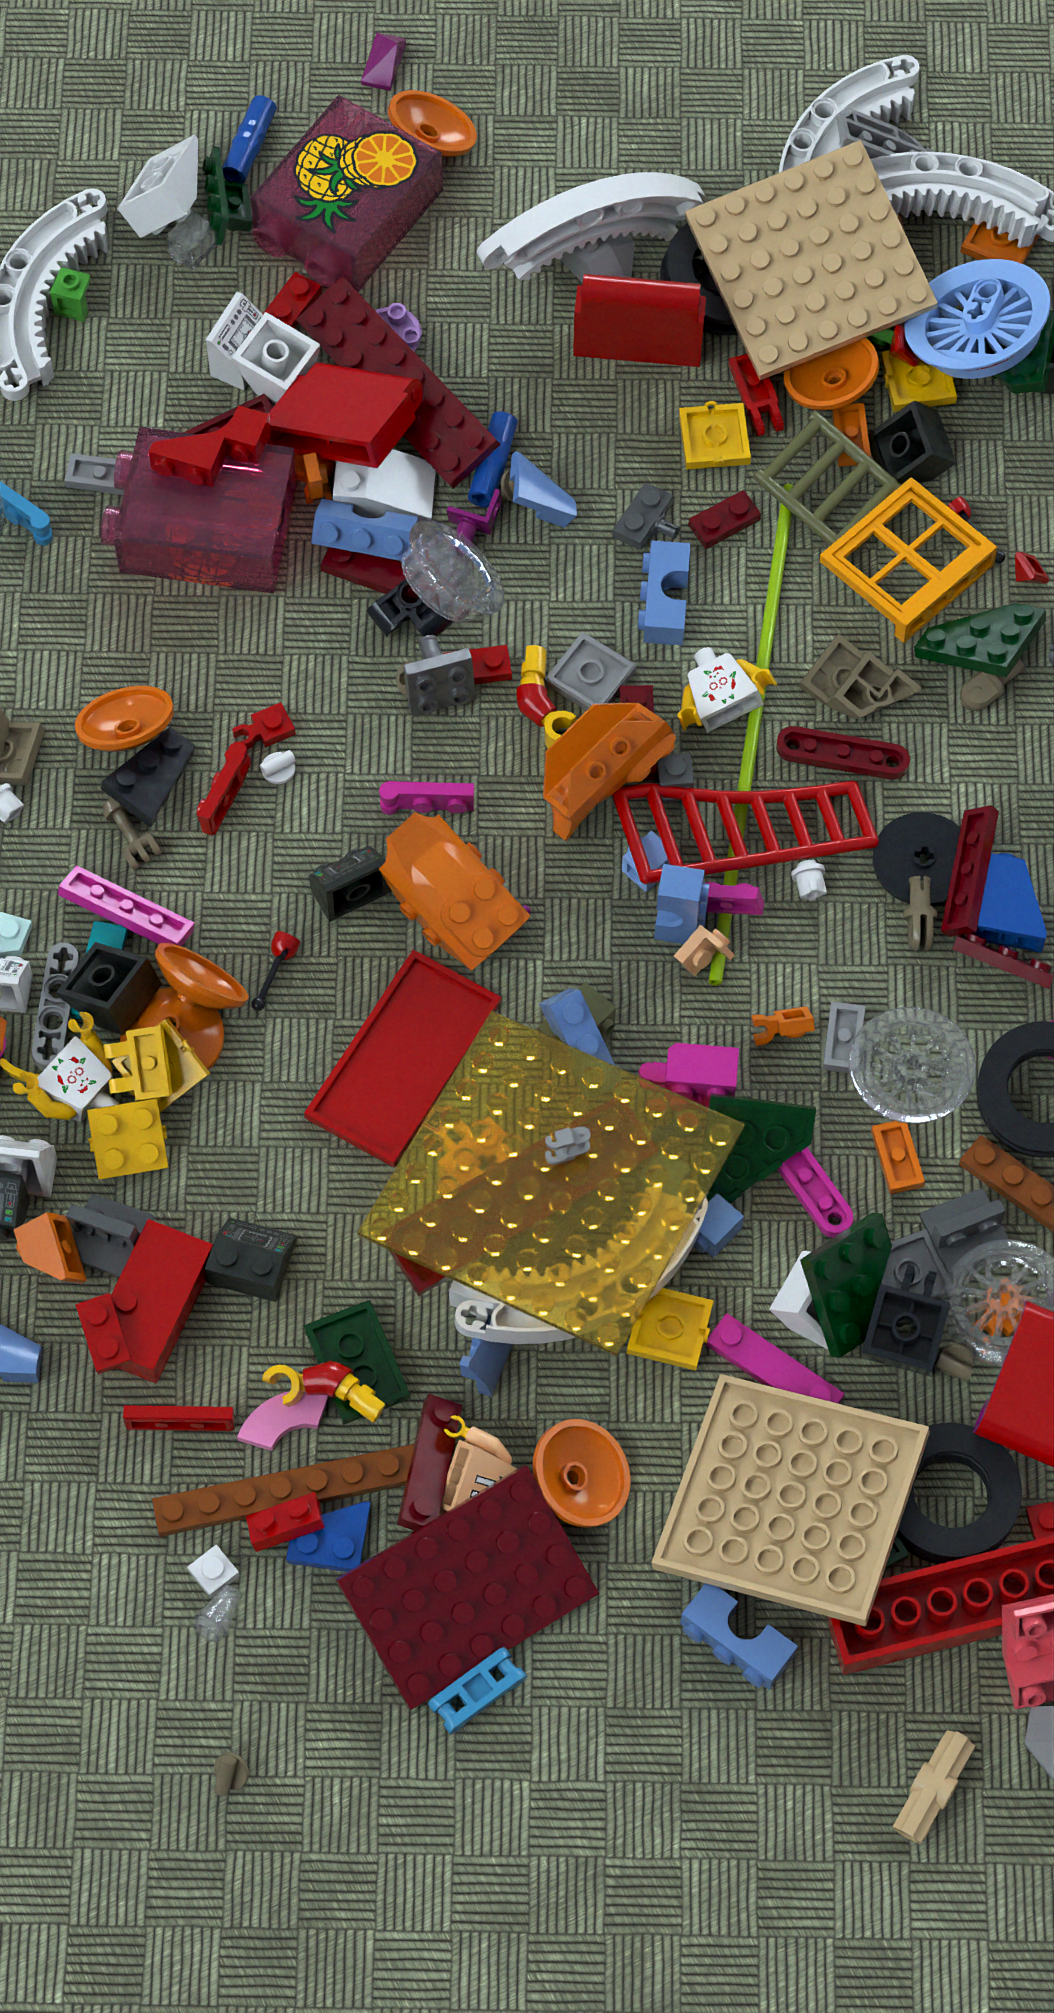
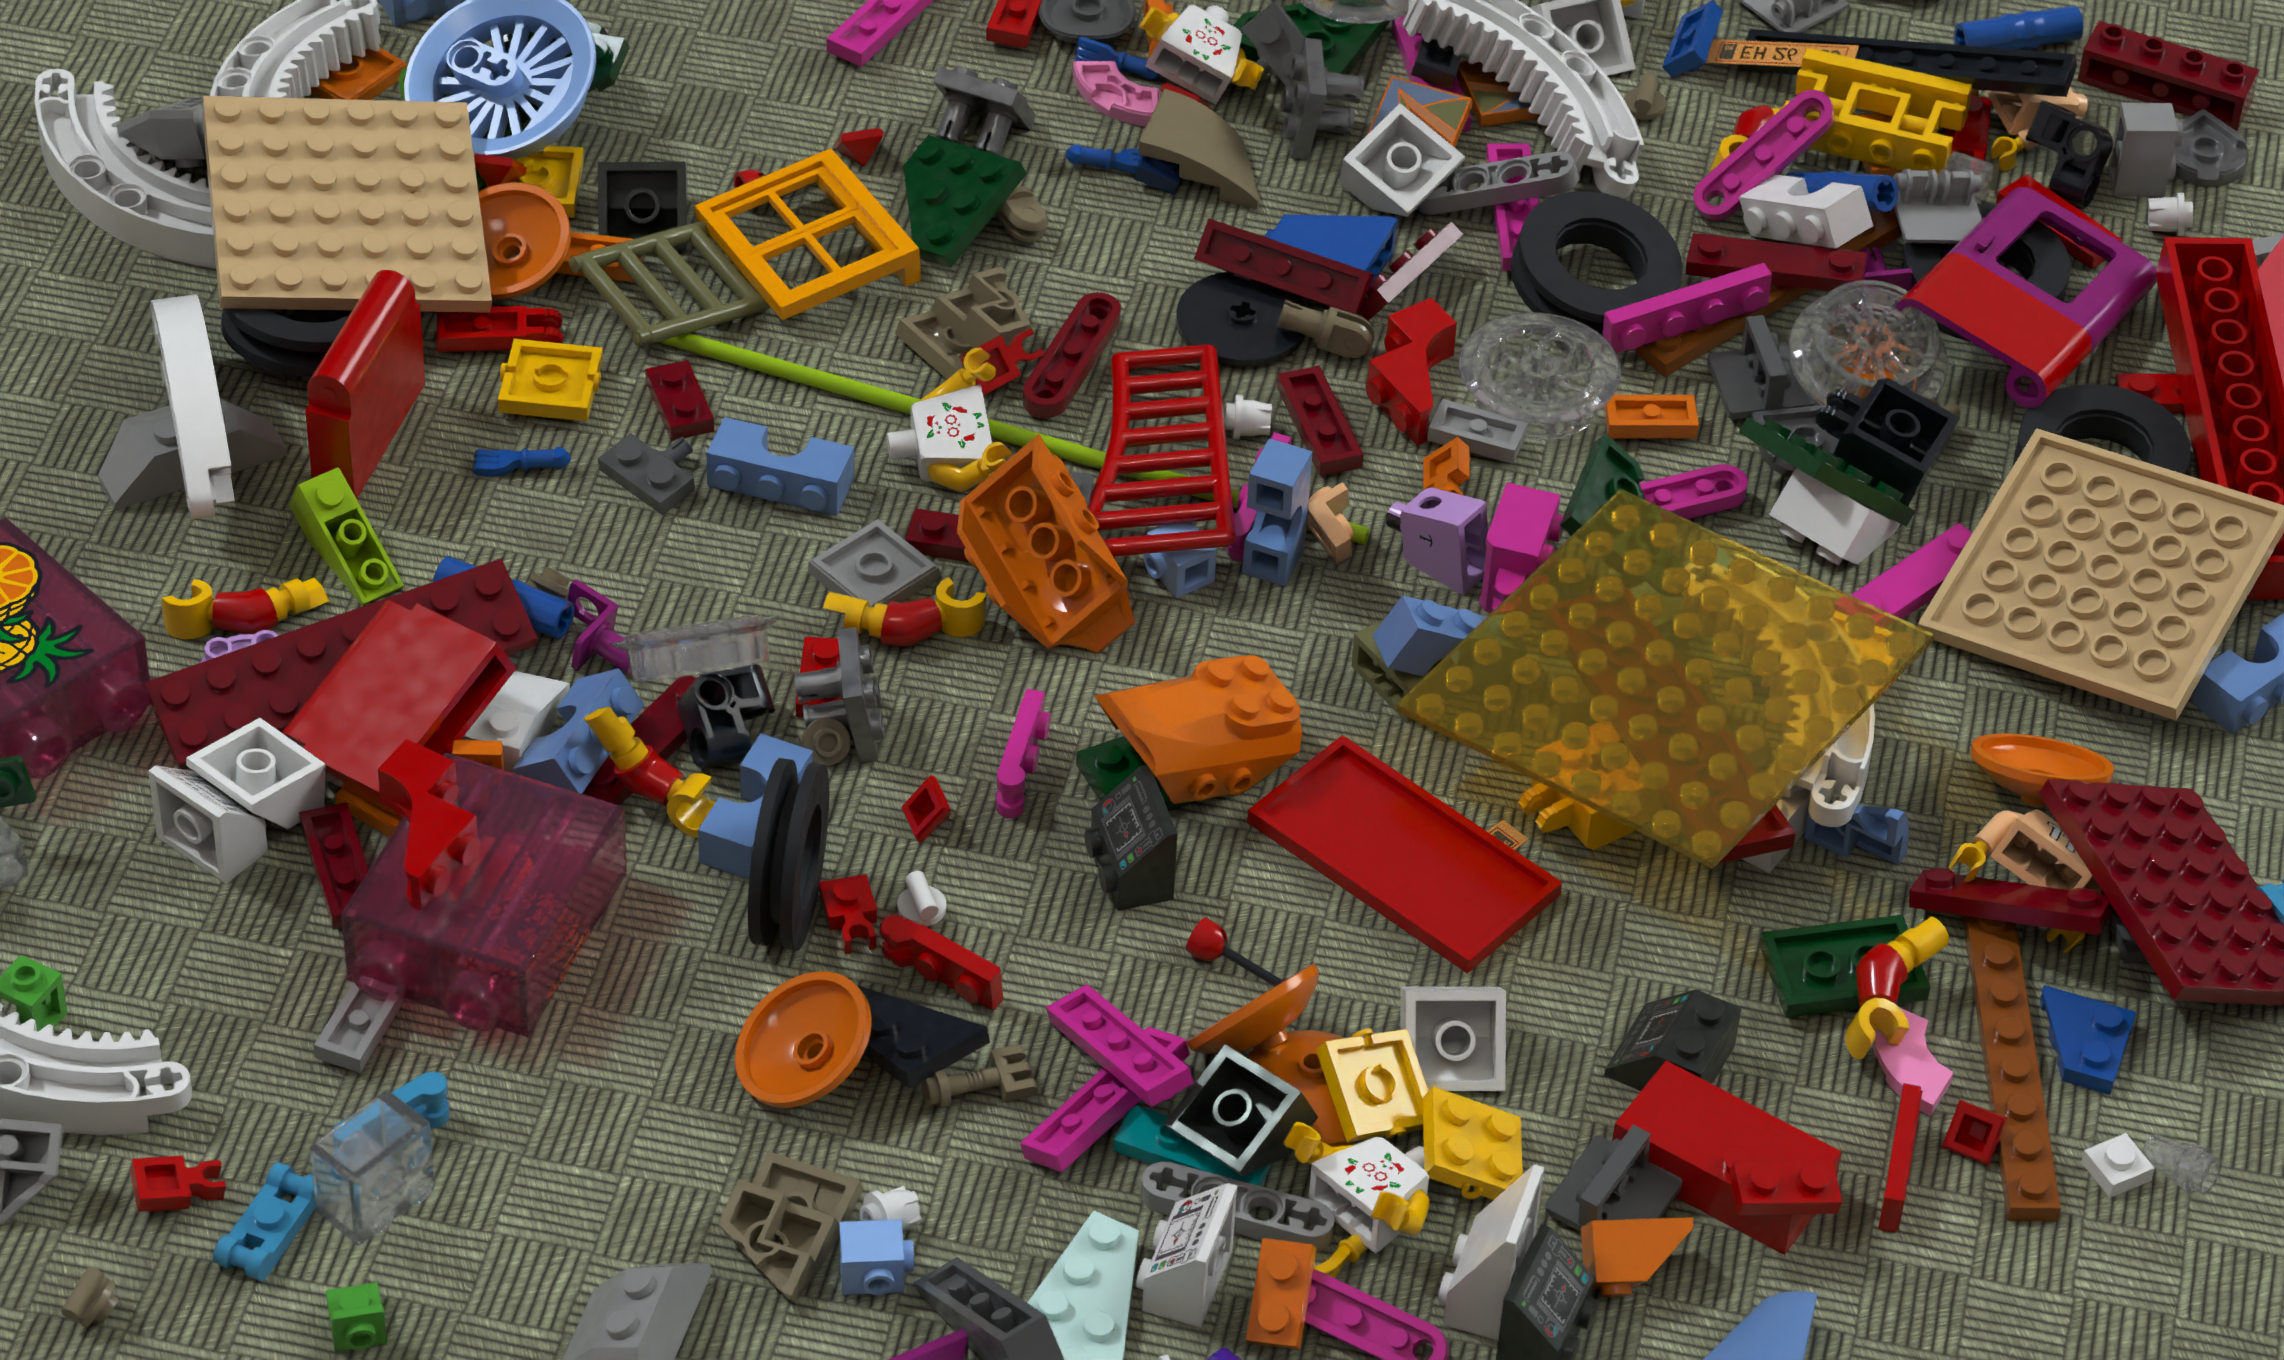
camera: 80 degrees left, 20 degrees down
(148, 1064) = (1385, 1075): yellow plate -> none
(158, 903) = (1119, 1045): none -> dark pink plate
(218, 1467) = (1974, 1132): none -> red slope
(228, 1111) = (1457, 1035): none -> white slope
(255, 640) = (788, 854): none -> black tyre
(285, 1522) = (2064, 1069): red plate -> none
(294, 299) = (130, 759): red plate -> none
(340, 583) = (651, 775): none -> yellow piece
(361, 659) = (730, 827): none -> medium blue arch
(364, 754) = (926, 809): none -> red slope
(440, 322) = (238, 611): none -> yellow piece
(521, 355) = (344, 536): none -> lime slope
(540, 493) = (601, 548): medium blue slope -> none
(568, 1144) = (1630, 636): light grey piece -> none
(631, 429) = (502, 462): none -> blue piece
(713, 1017) = (1443, 536): none -> lavender torso
(812, 705) = (1004, 359): none -> red plate
(822, 928) = (1319, 420): none -> dark red plate
(881, 977) = (1400, 378): none -> red arch
(1008, 1165) = (1687, 308): none -> dark pink plate

